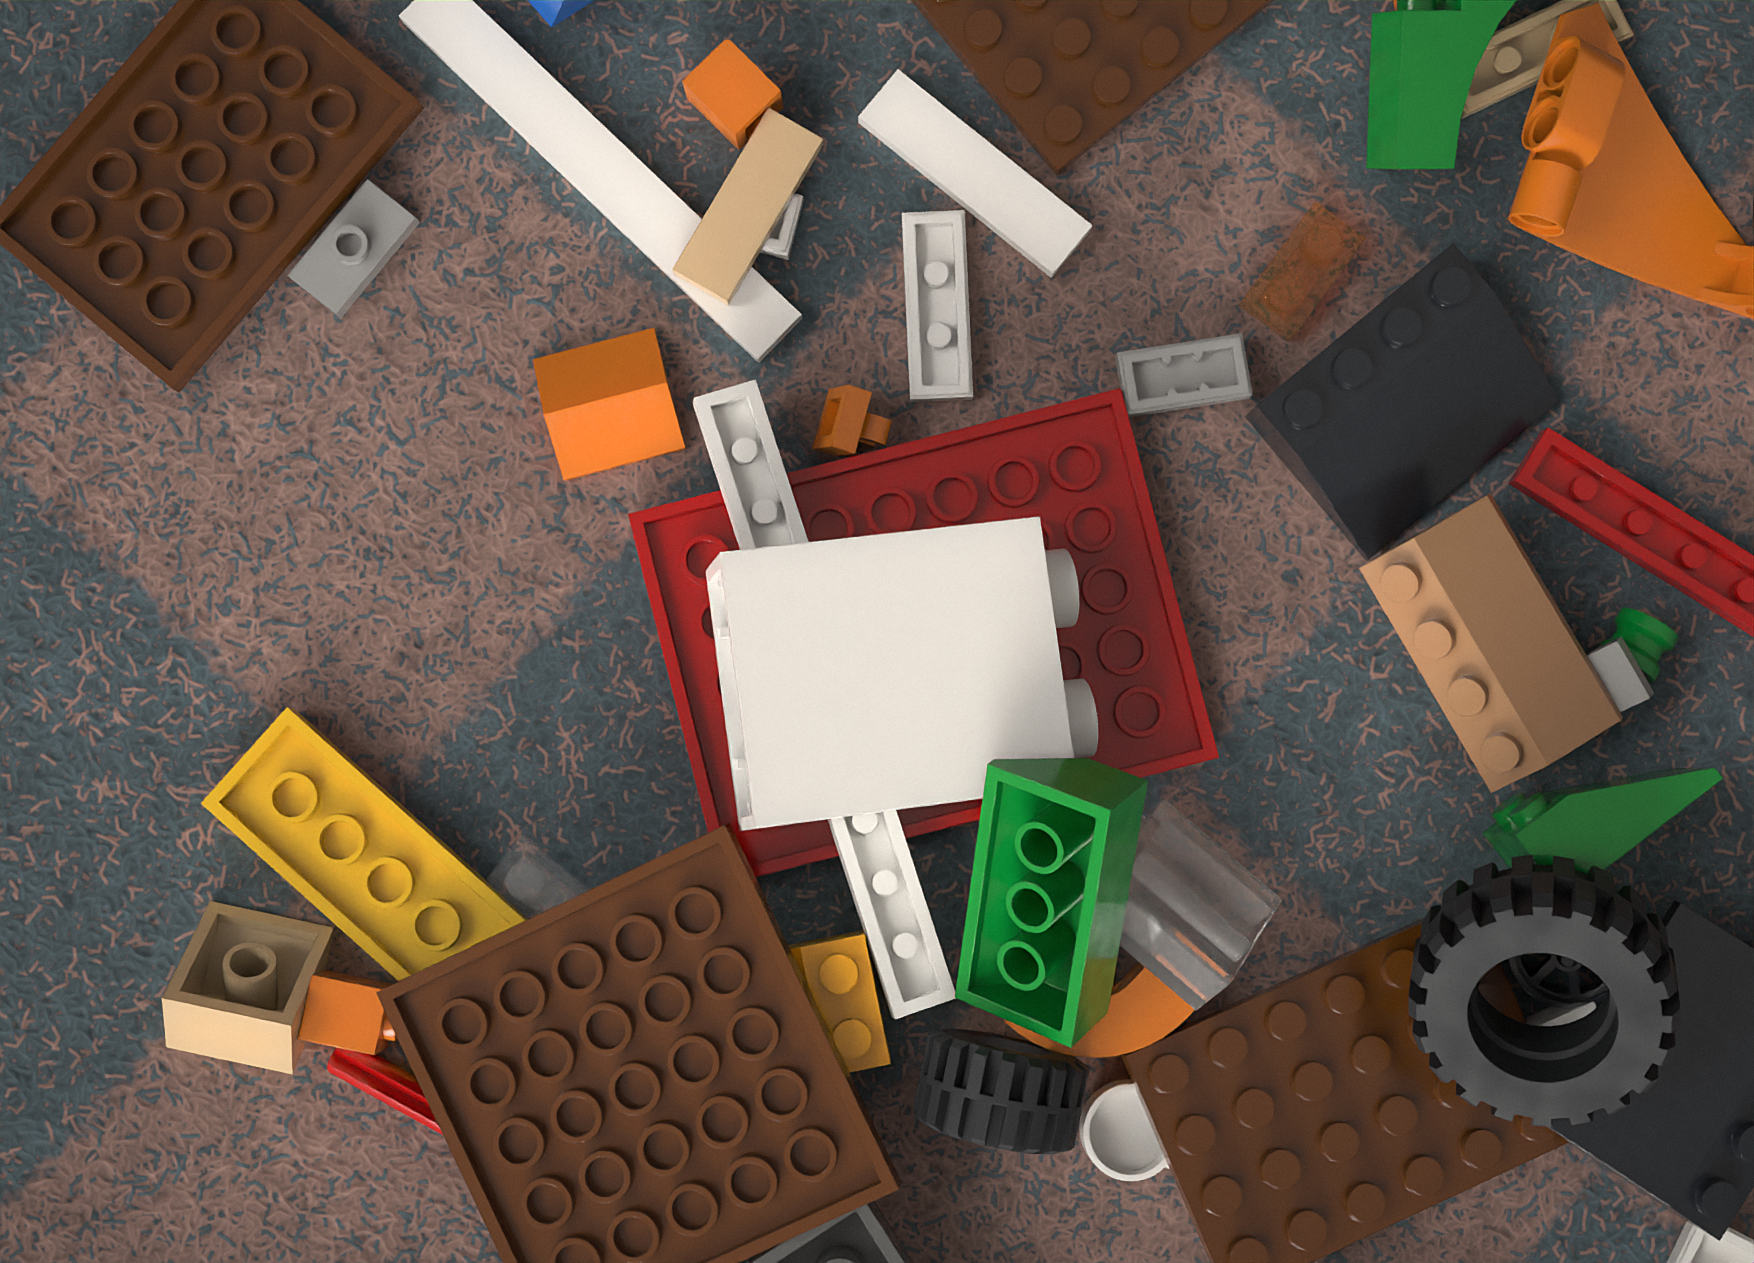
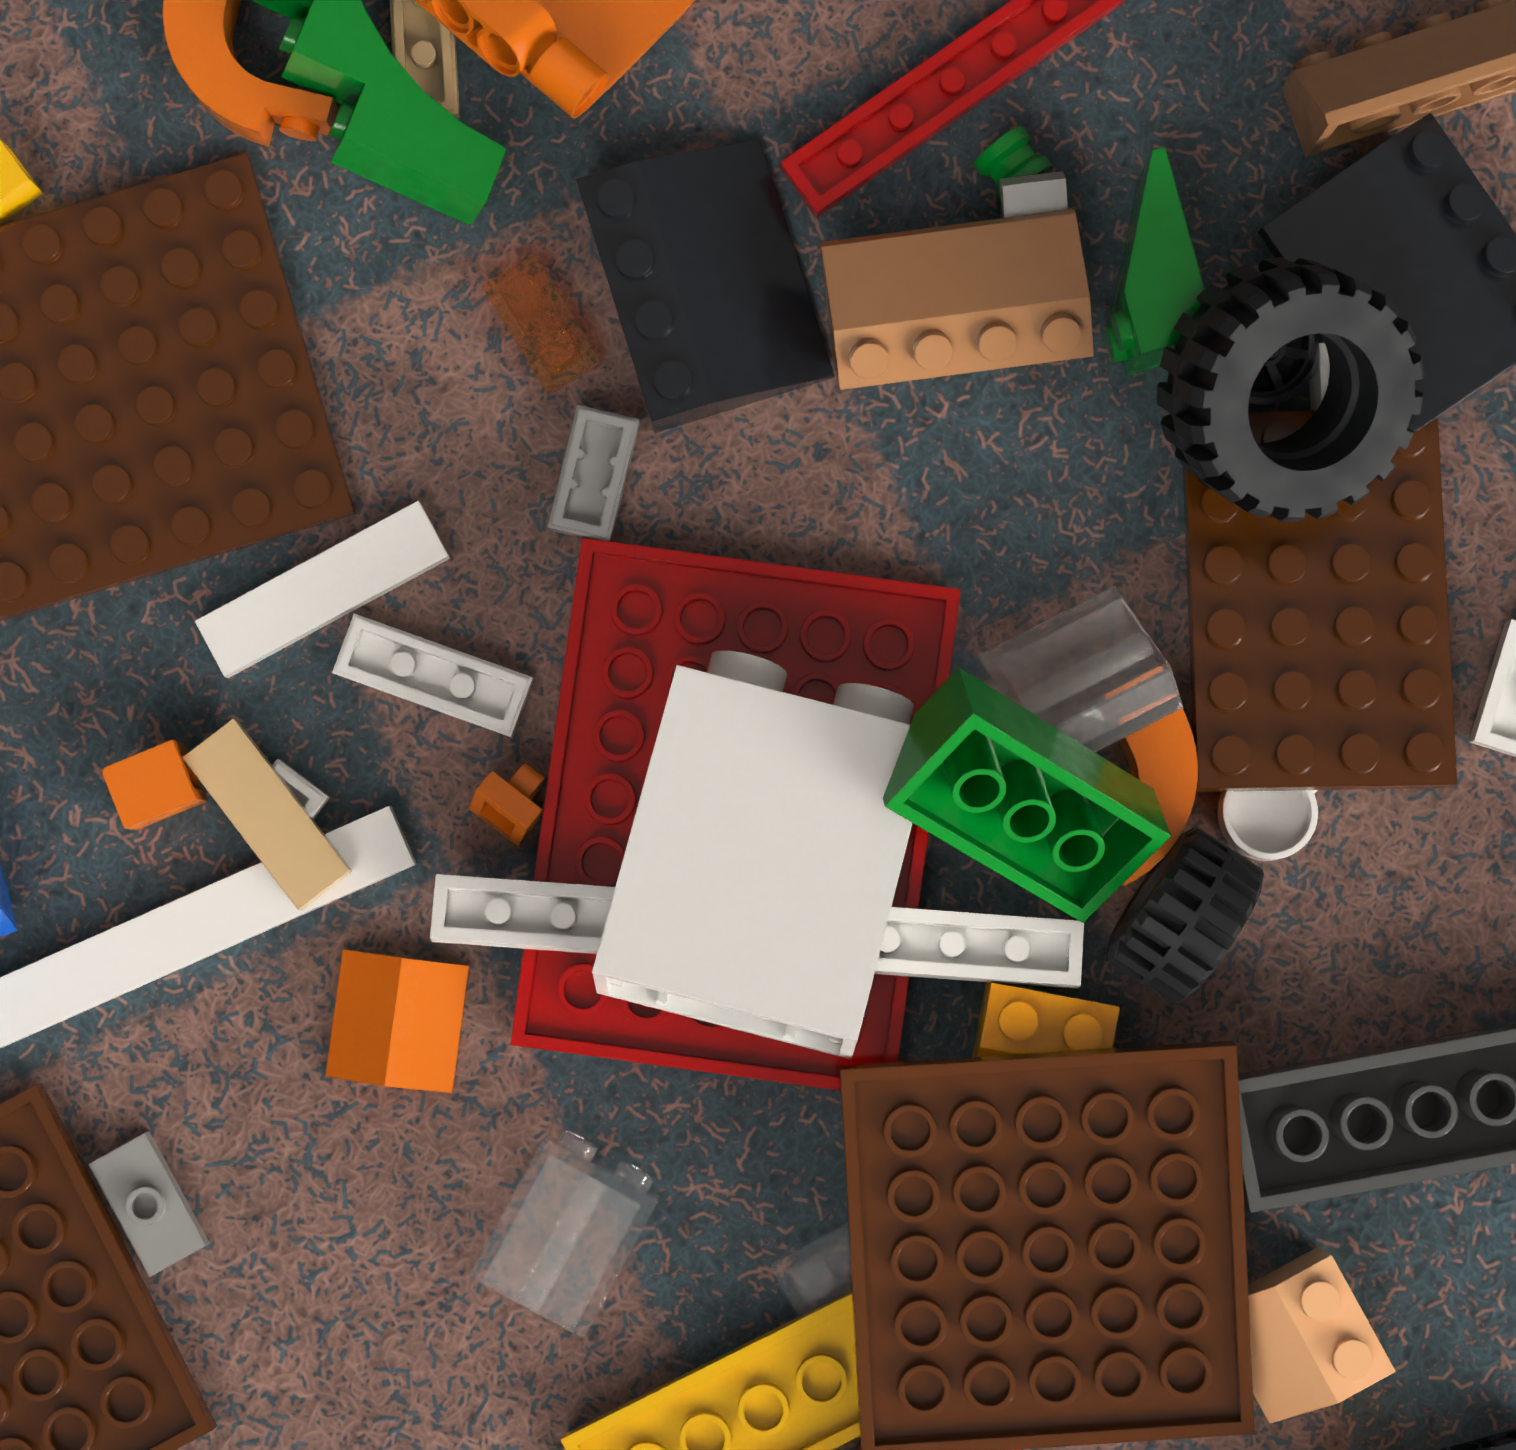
camera: 65 degrees left, 0 degrees up
(477, 635) = (567, 1232): none -> clear brick

